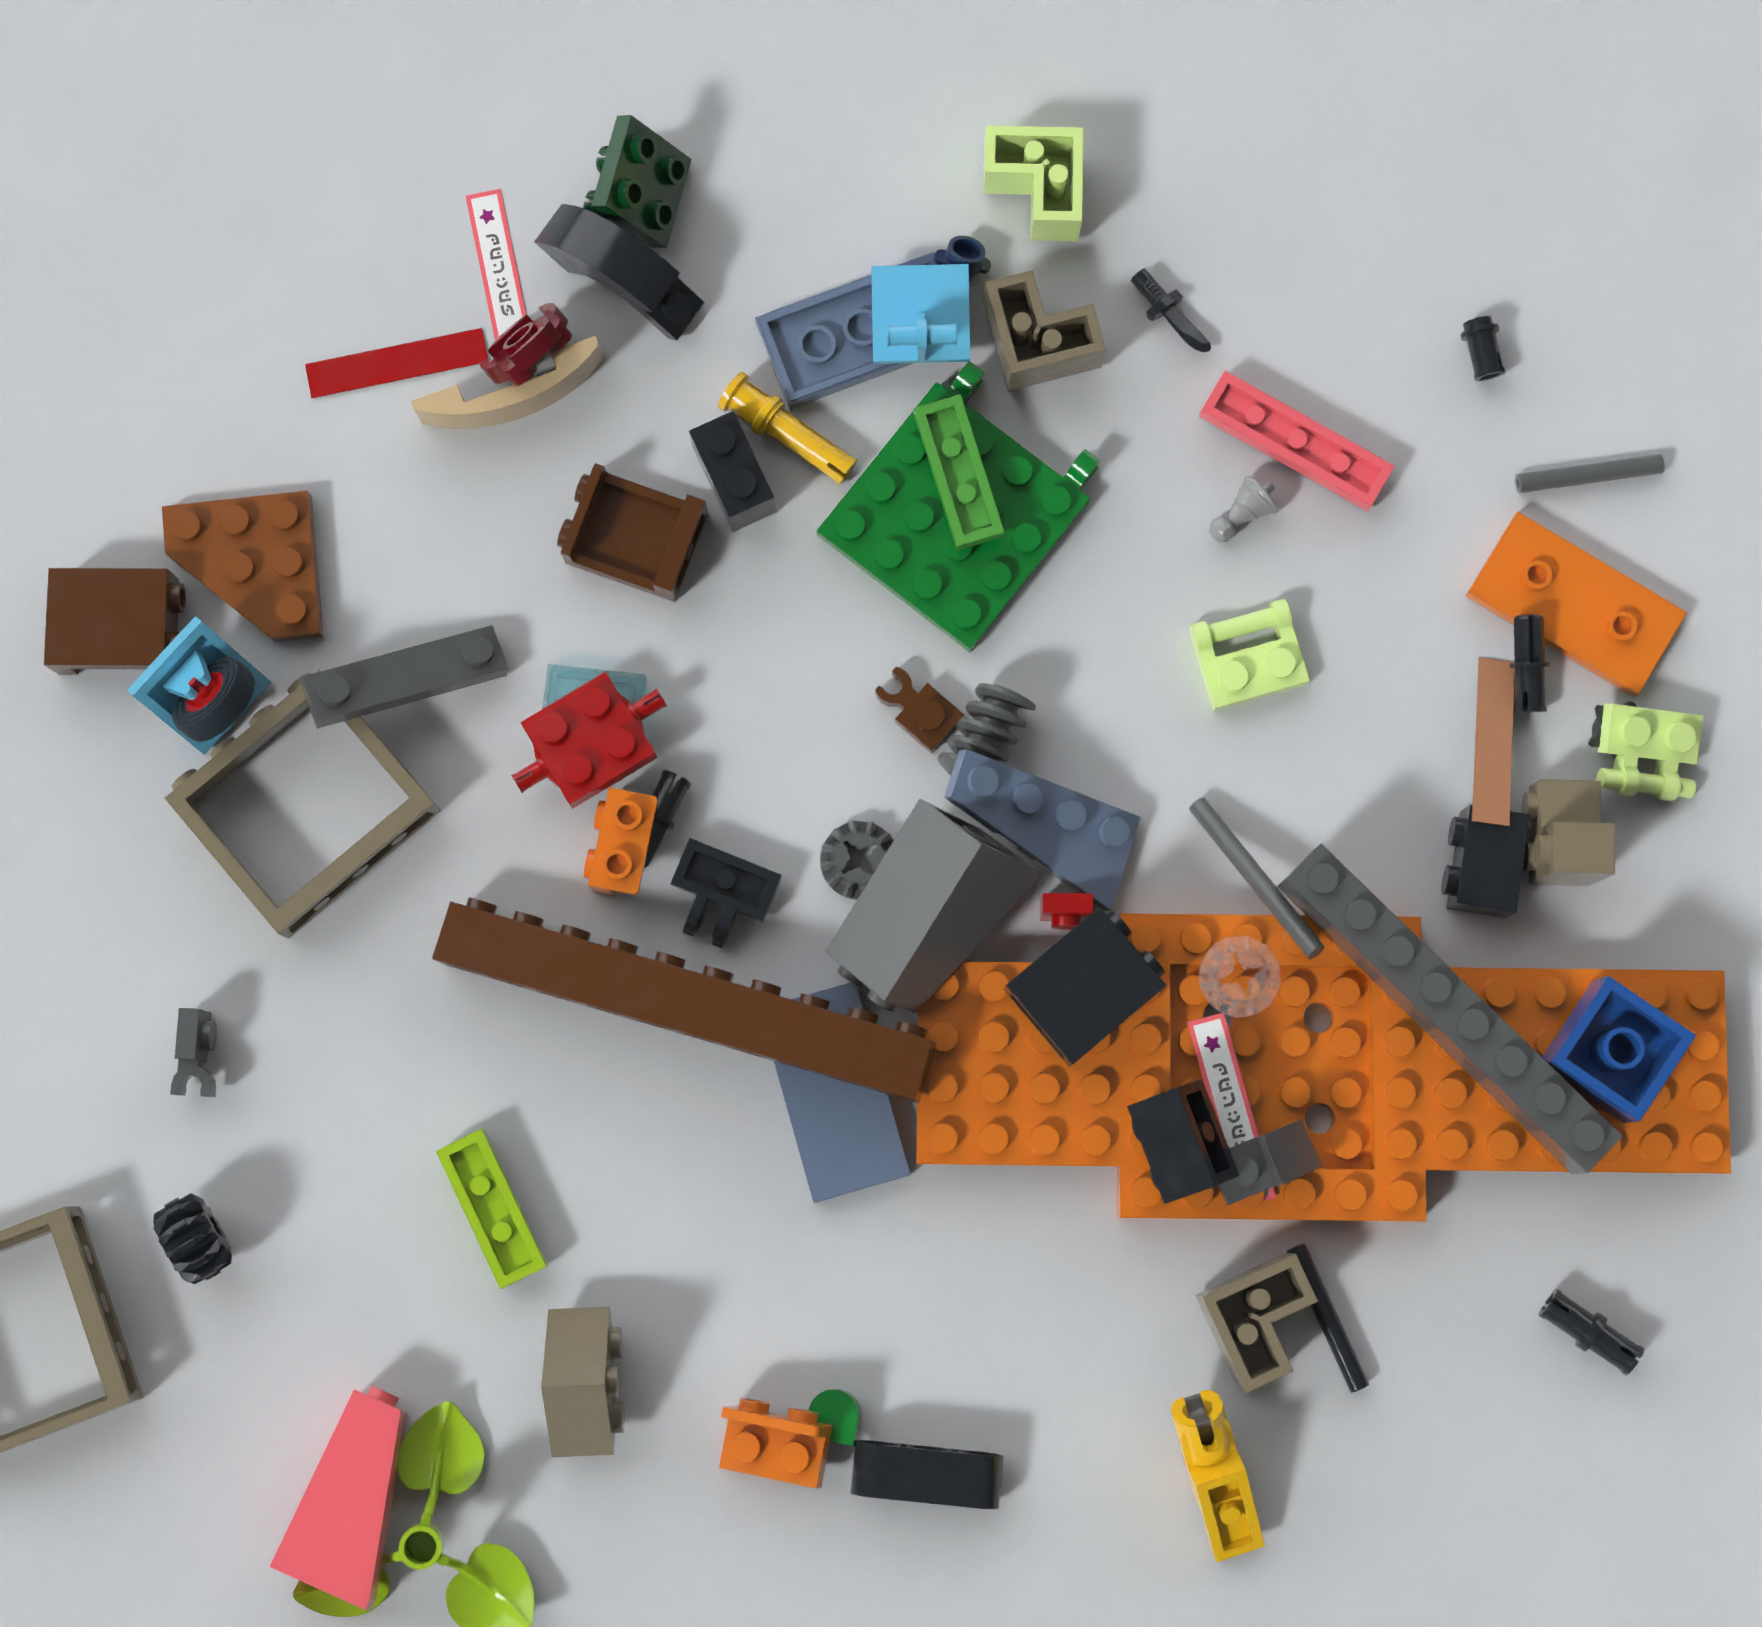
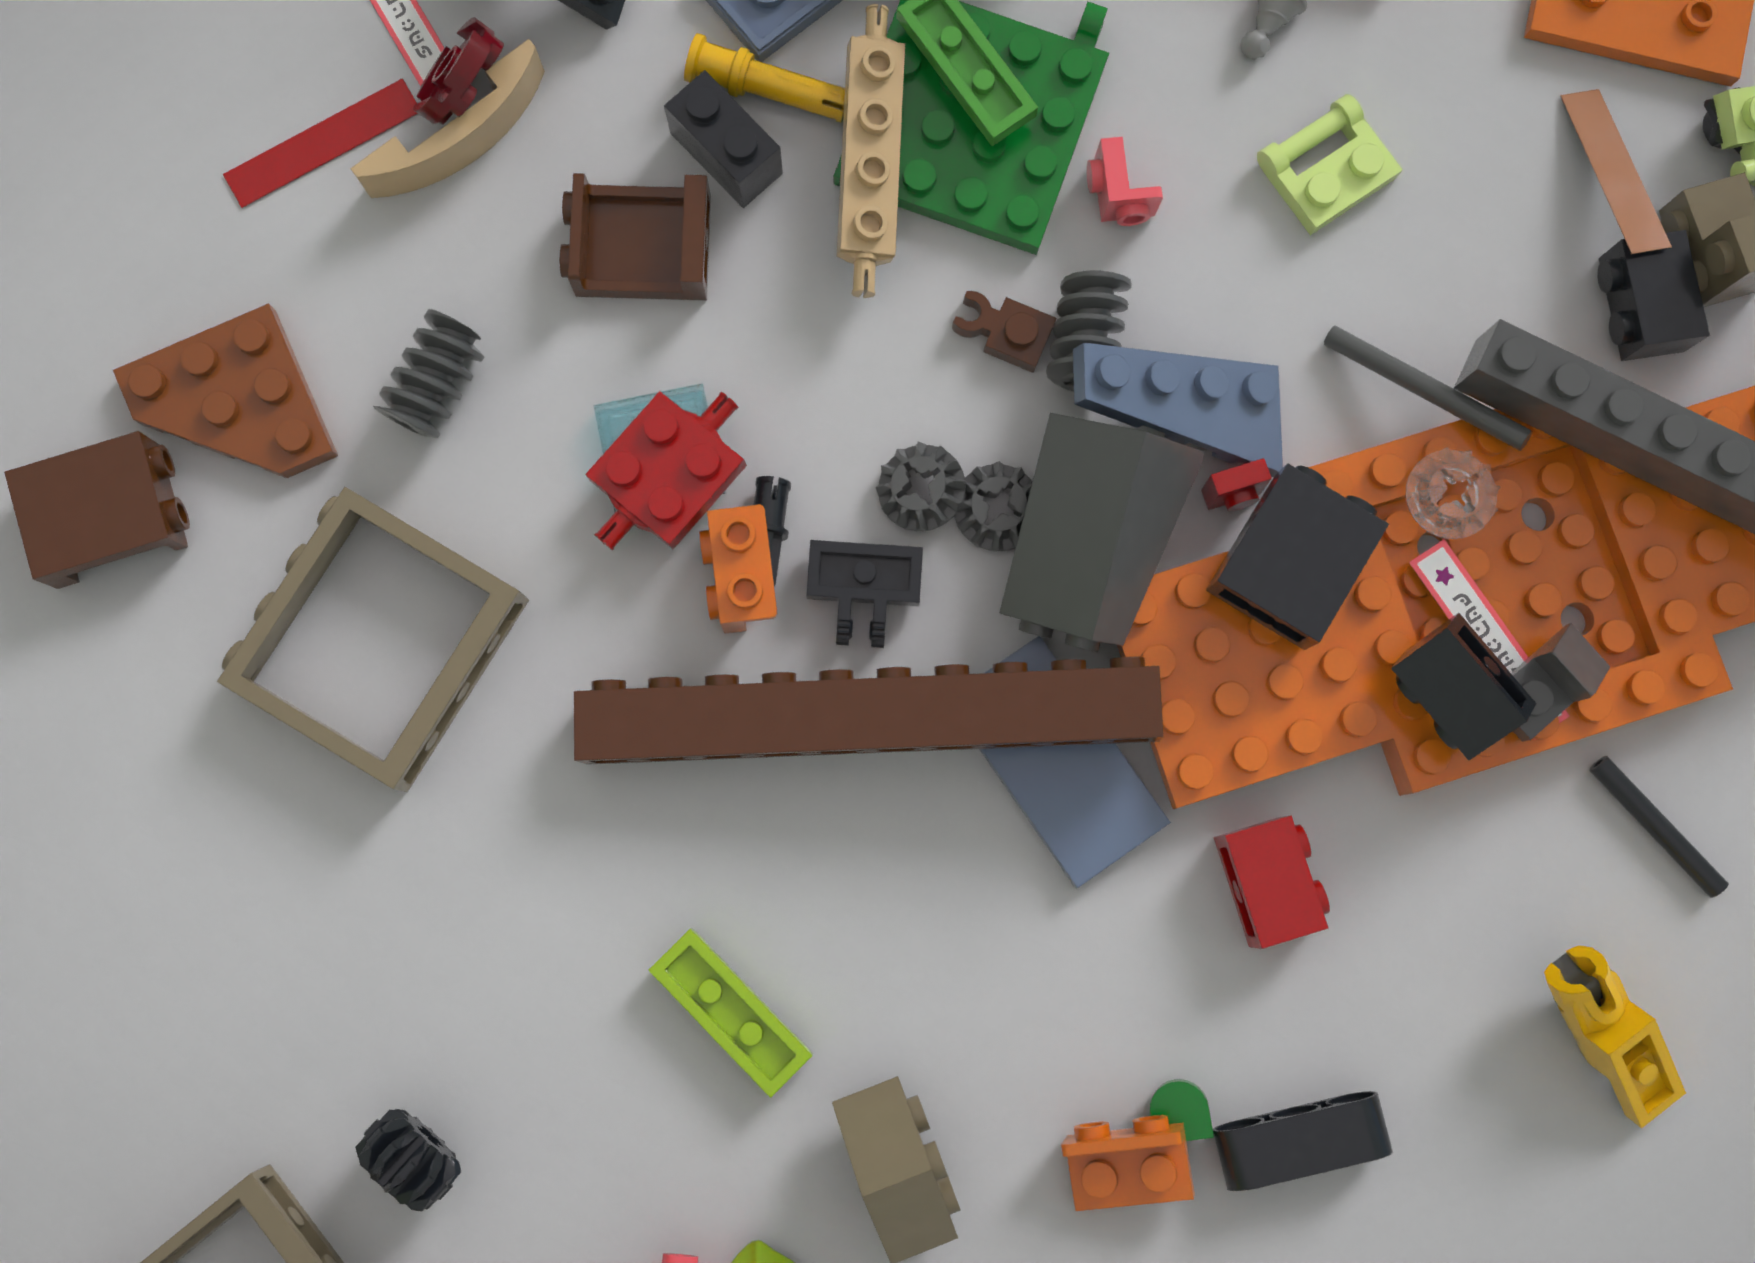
camera: 25 degrees left, 0 degrees up
(194, 1039) = (337, 938): dark grey plate -> none
(199, 685) = (215, 546): plate -> none
(404, 676) = (439, 466): dark grey plate -> none
(421, 596) = (430, 374): none -> dark grey piece
(817, 832) = (946, 489): none -> dark grey gear
(852, 522) = (870, 151): none -> tan plate
(977, 1252) = (1273, 882): none -> red brick
(1049, 607) = (1109, 179): none -> coral bracket
(1242, 1317) = (1582, 855): dark tan brick -> none
(1529, 663) = (1620, 79): black axle -> none

